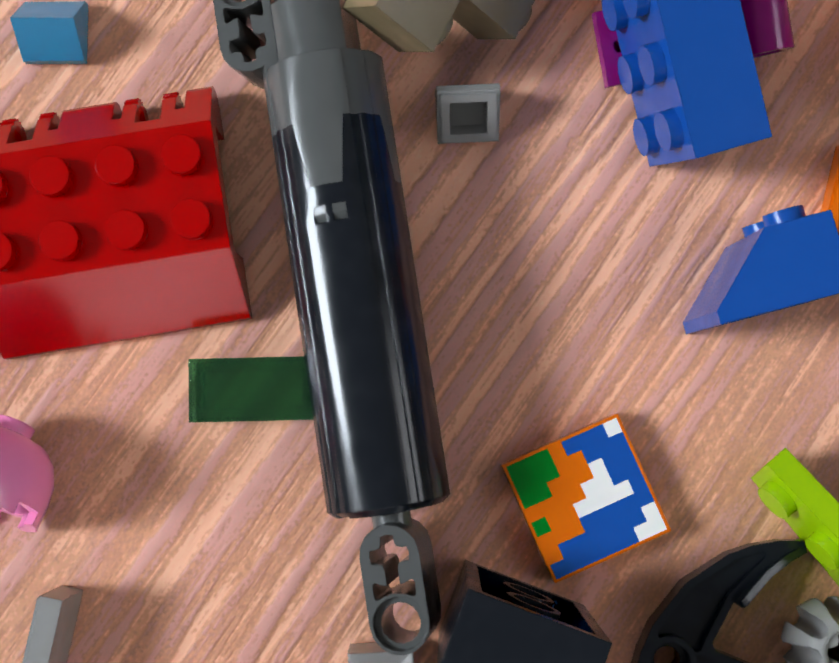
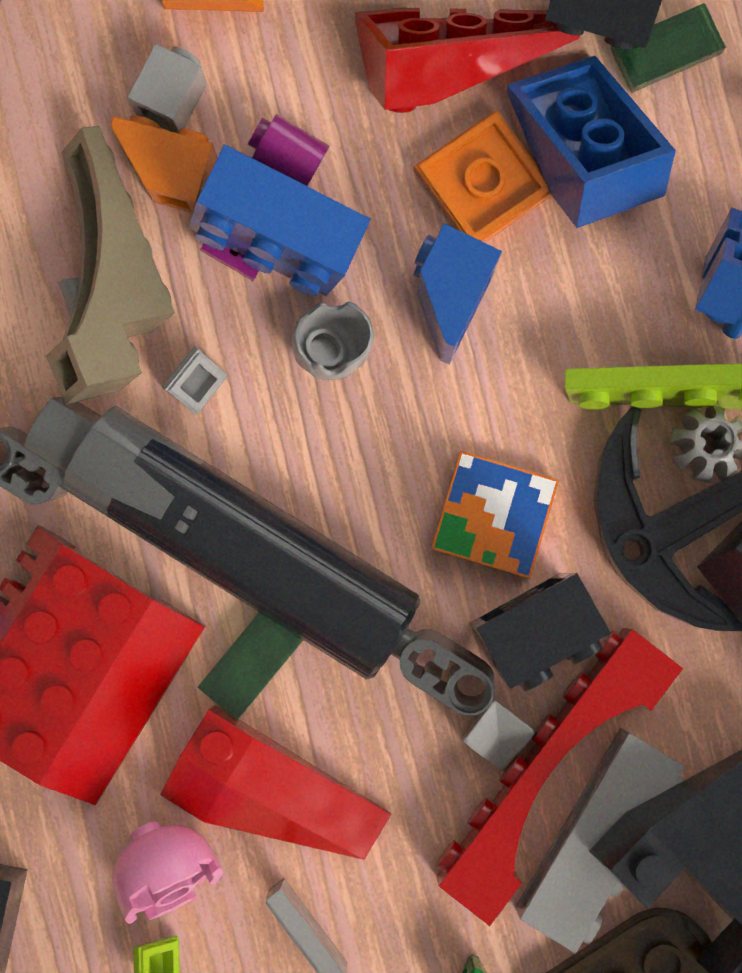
camera: 45 degrees left, 0 degrees up
(147, 494) = (261, 788): none -> red wedge
(616, 206) = (332, 340): none -> light grey hair

